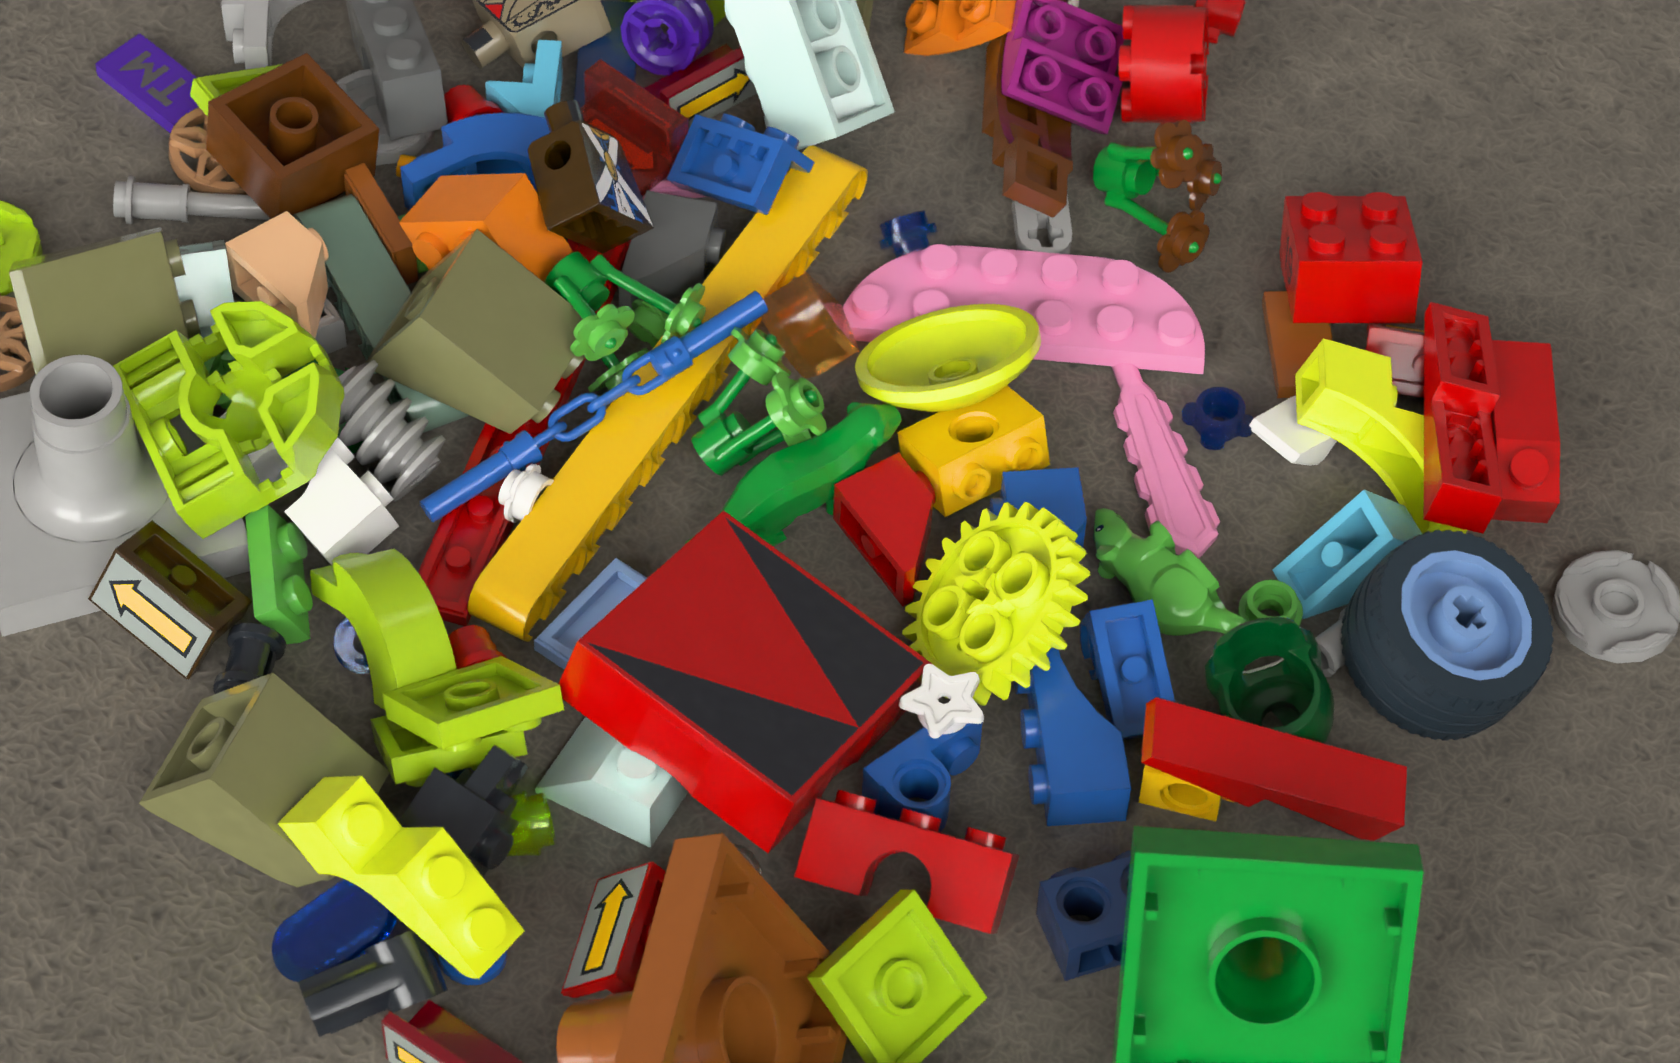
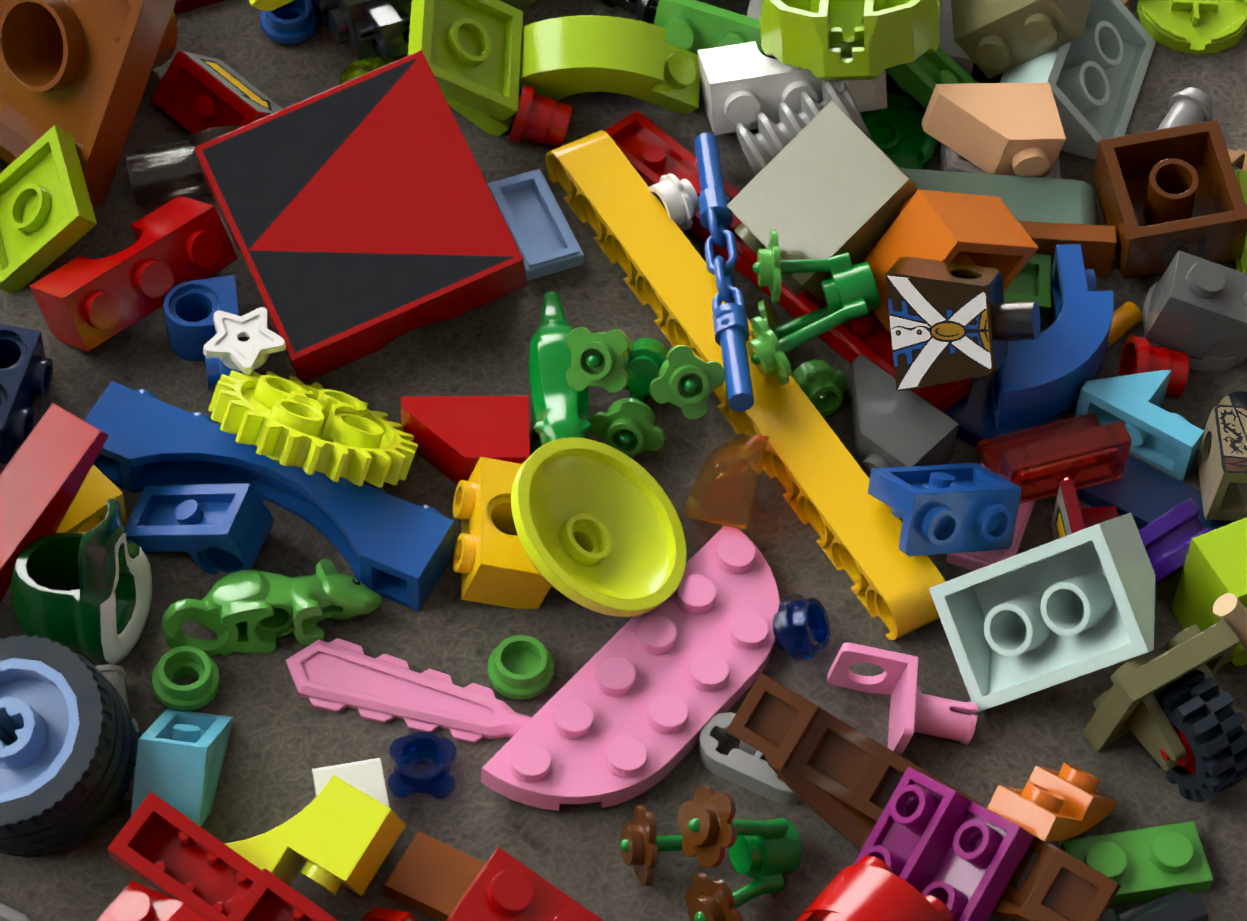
camera: 120 degrees right, 0 degrees up
(931, 142) = (908, 706): none -> bright pink bracket
(1080, 398) = (520, 668): none -> bright green plate

